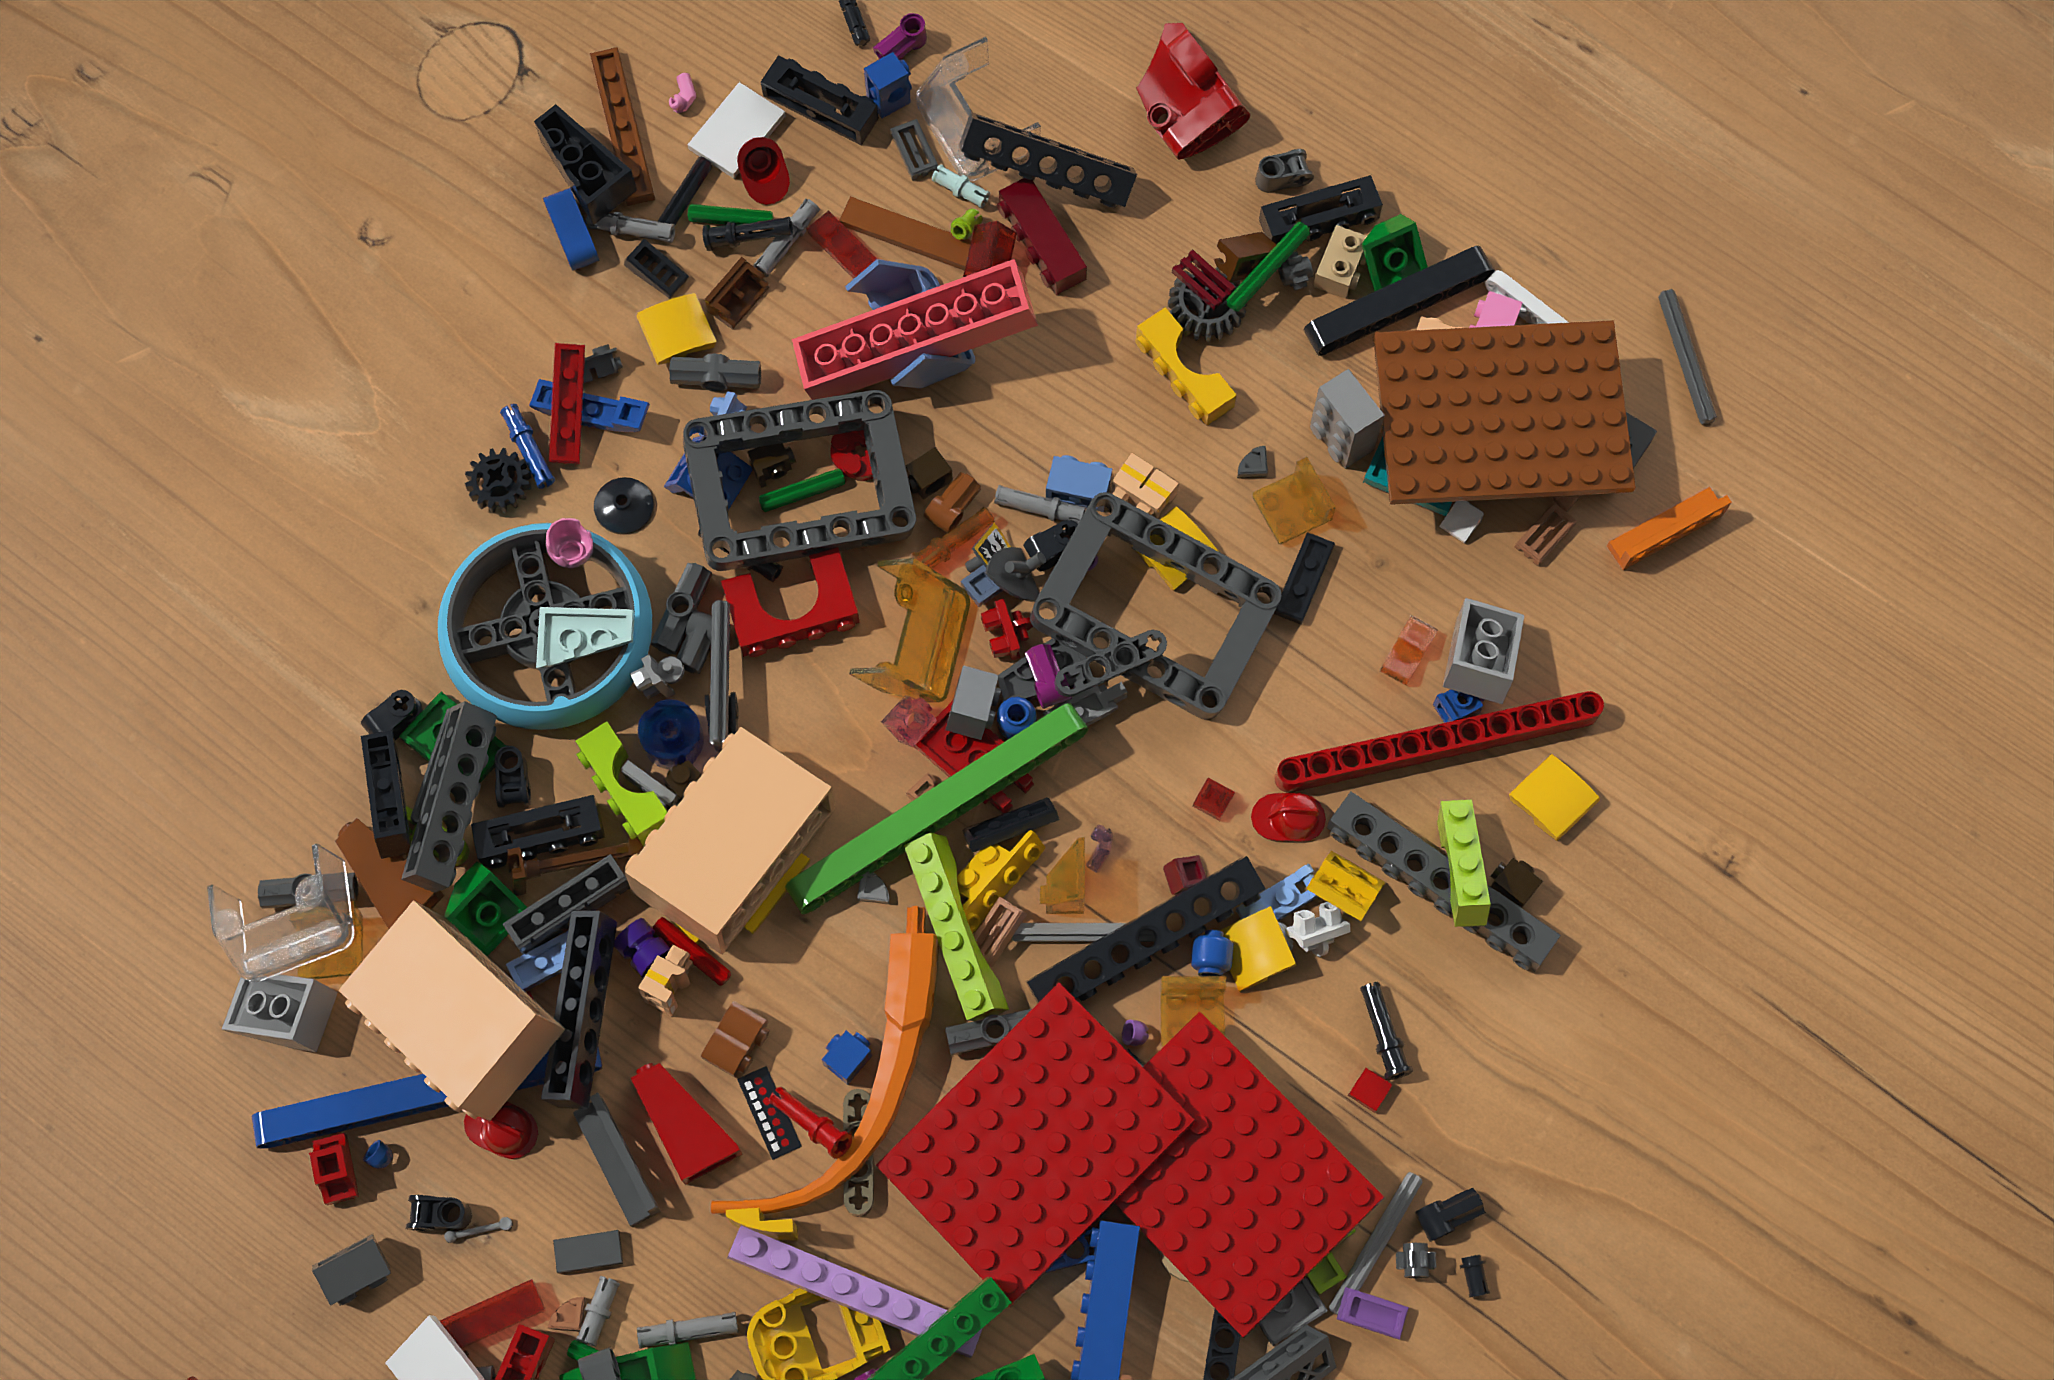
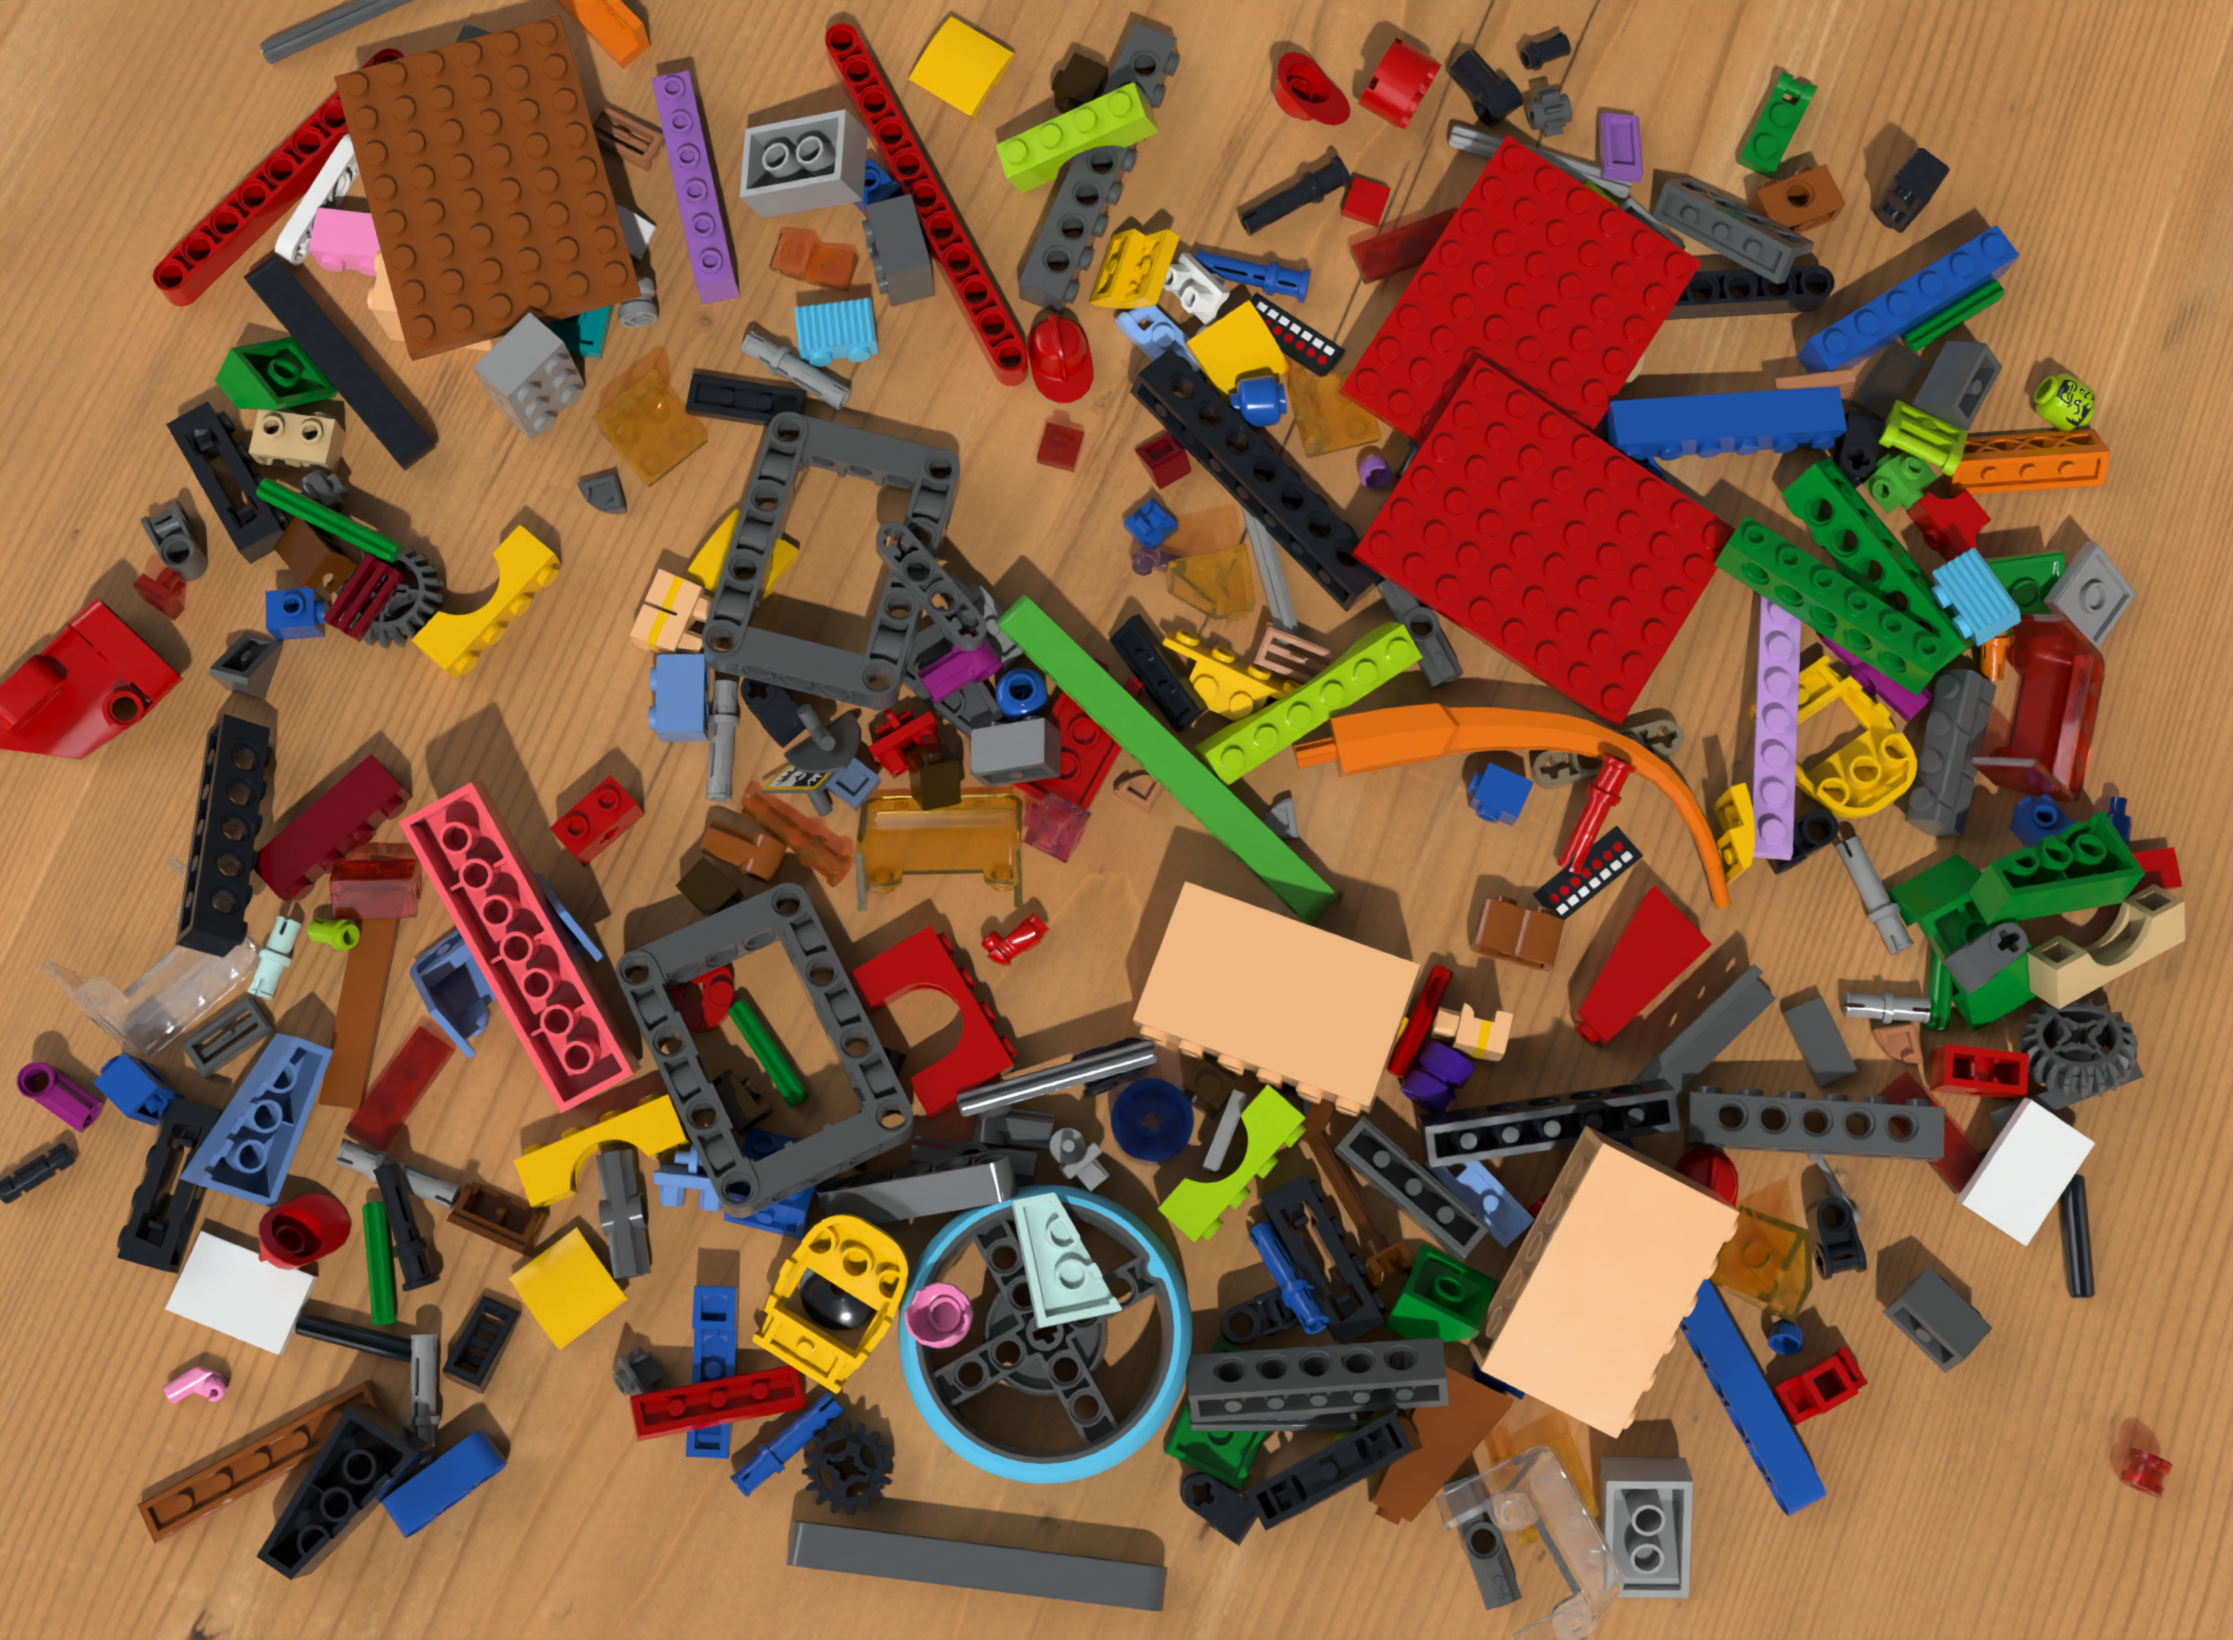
camera: 105 degrees left, 5 degrees up
(405, 551) = (977, 1566): none -> dark grey beam
(432, 1151) = (1767, 1264): none -> clear yellow slope
(529, 799) = (1296, 1291): none -> blue pin
(545, 1139) = (1923, 1123): none -> dark grey brick
(630, 510) = (859, 1261): none -> yellow slope
(668, 561) = (921, 1188): none -> dark grey beam
(743, 1280) = (1803, 843): none -> black piece
(758, 336) = (554, 1170): none -> yellow arch
(834, 678) = (1021, 939): none -> red arm
(840, 154) = (263, 1123): none -> medium blue wedge
(969, 642) = (935, 776): none -> dark brown brick
(1000, 407) = (597, 820): none -> red brick
(1132, 851) = (1151, 525): none -> blue tile
(1177, 202) = (248, 665): none -> dark grey slope
(1207, 235) = (295, 613): none -> blue brick
(1246, 156) = (162, 593): none -> clear red tile
(1267, 1001) = (1297, 338): none -> black sticker
(1319, 992) = (1269, 277): none -> blue pin
(1321, 1102) = (1400, 247): none -> clear red plate
(1329, 608) = (783, 363): none -> light grey pin
(1344, 652) = (836, 332): none -> medium azure brick
(1396, 706) = (898, 250): none -> dark grey brick
(1401, 515) = (639, 311): none -> light grey wheel
(1464, 1136) = (1400, 83): none -> red brick
(1472, 1064) = (1307, 92): none -> red piece
(1488, 573) = (695, 187): none -> medium lavender brick
(1554, 274) = (239, 209): none -> red beam

